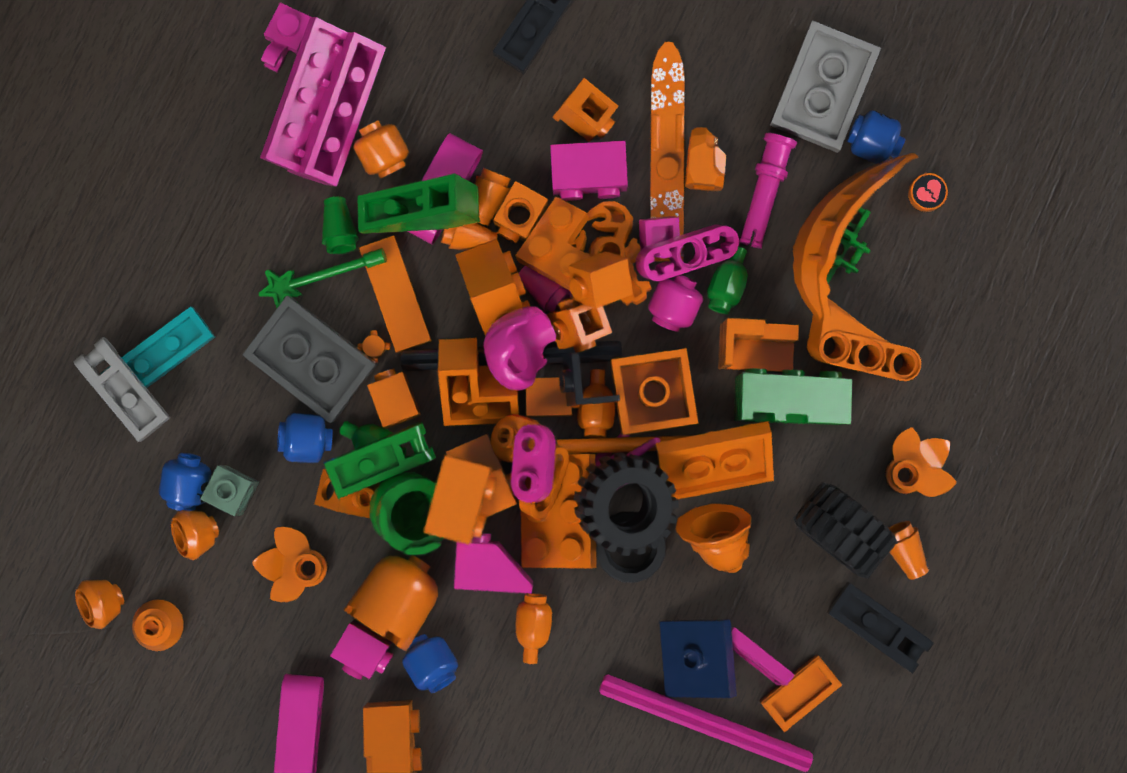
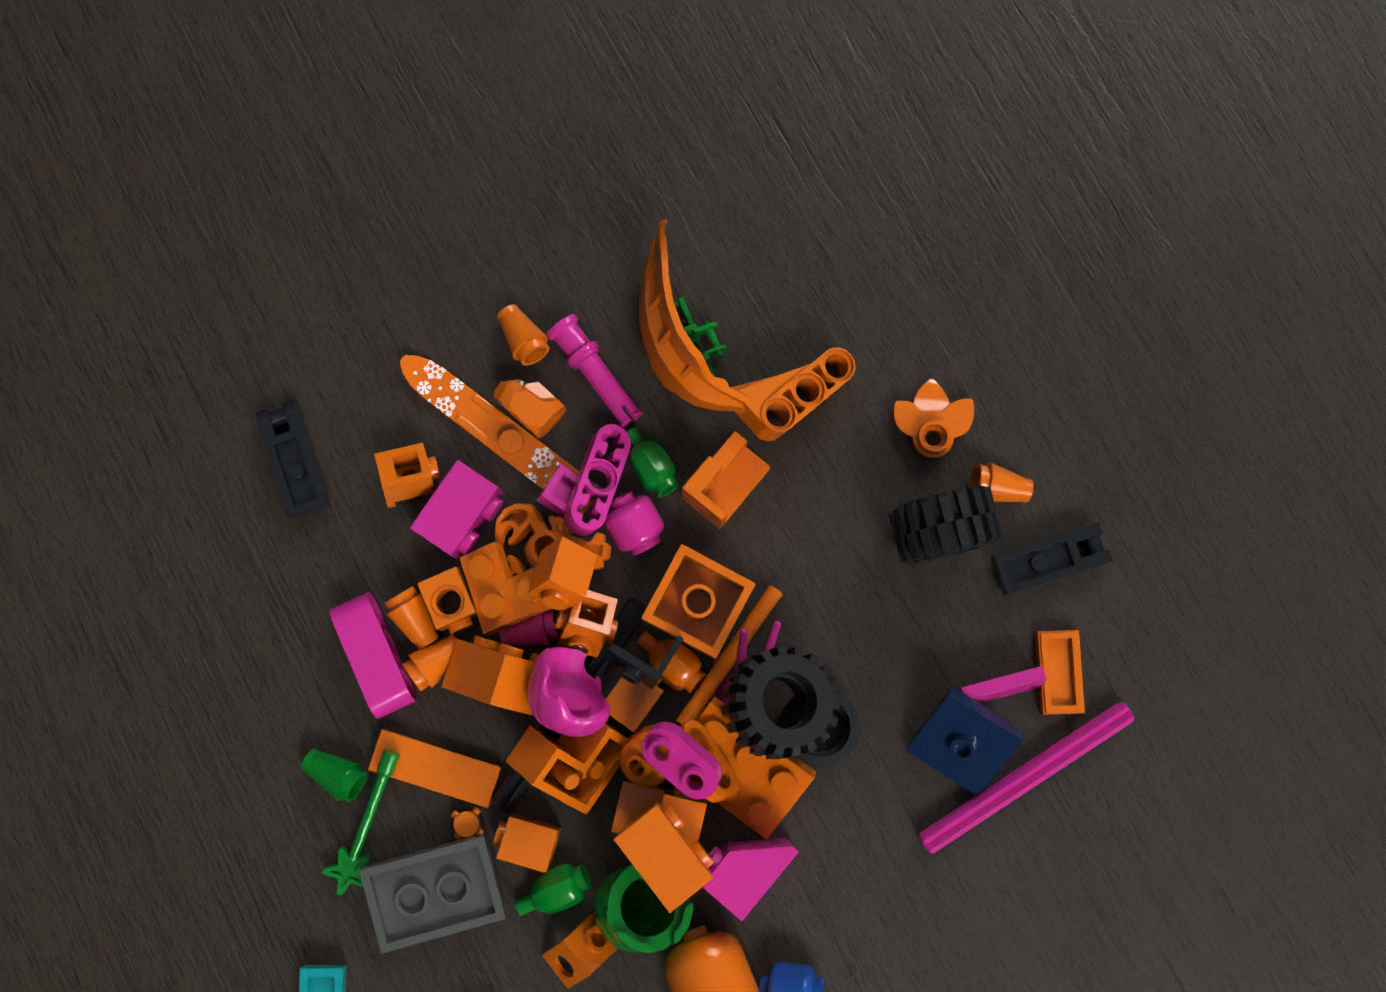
camera: 55 degrees left, 5 degrees down
(285, 33) = (124, 688): dark pink plate -> none
(303, 438) = (500, 953): blue head -> none
(323, 102) = (212, 704): dark pink brick -> none
(378, 460) = (572, 902): green plate -> none
(381, 149) = (295, 682): orange head -> none
(420, 206) = (372, 686): green slope -> none
(533, 625) = (827, 869): orange plant -> none
(717, 534) = (866, 640): orange piece -> none
(718, 460) = (800, 590): orange plate -> none
(751, 118) = (523, 337): none -> orange cone
(793, 397) = (794, 483): wedge -> none
(825, 86) = (545, 254): light grey plate -> none
(876, 137) = (622, 244): blue head -> none
(927, 192) = (703, 237): tile -> none

